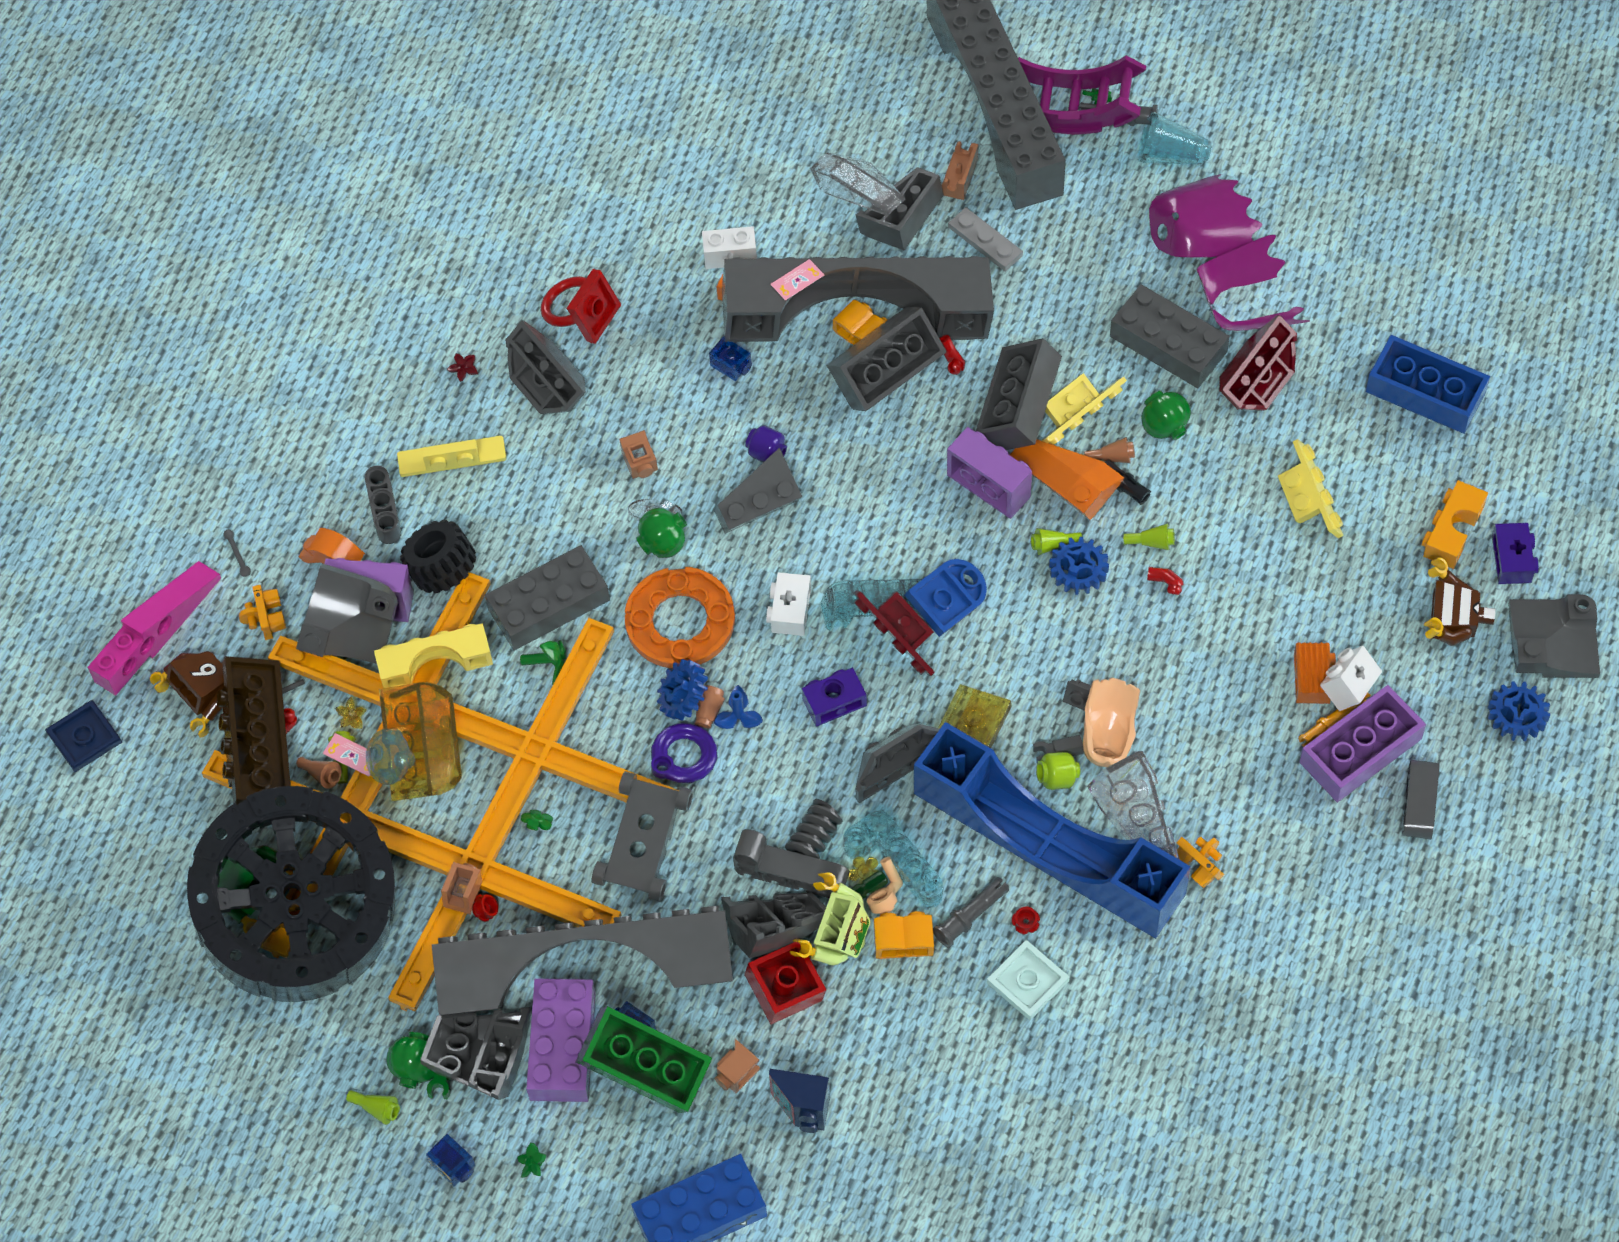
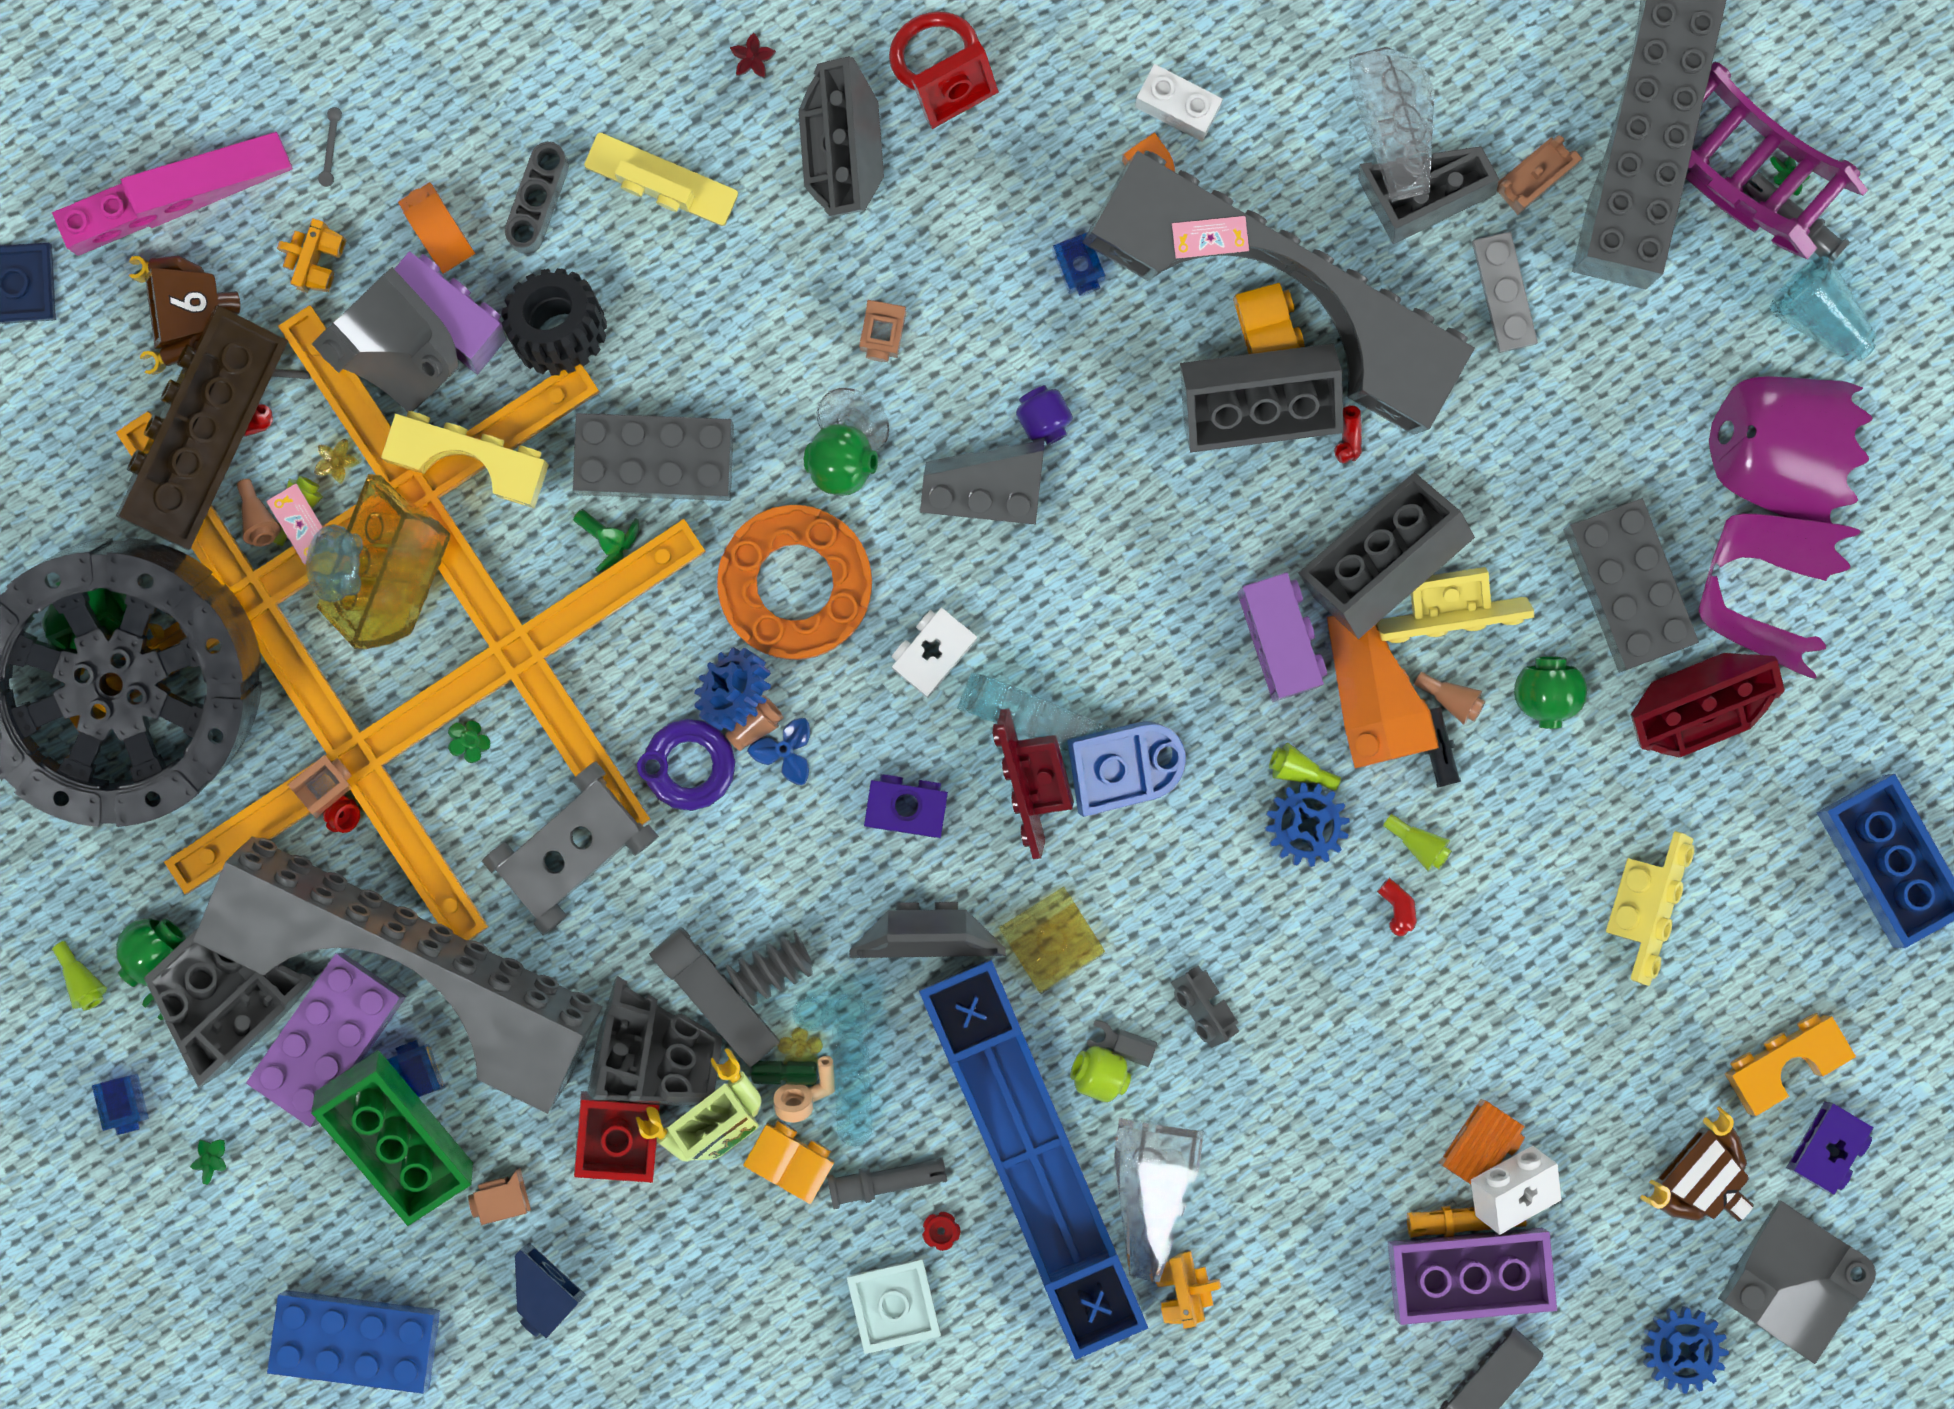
camera: 25 degrees right, 25 degrees up
(1109, 721) = (1196, 1062): light nougat hair -> none

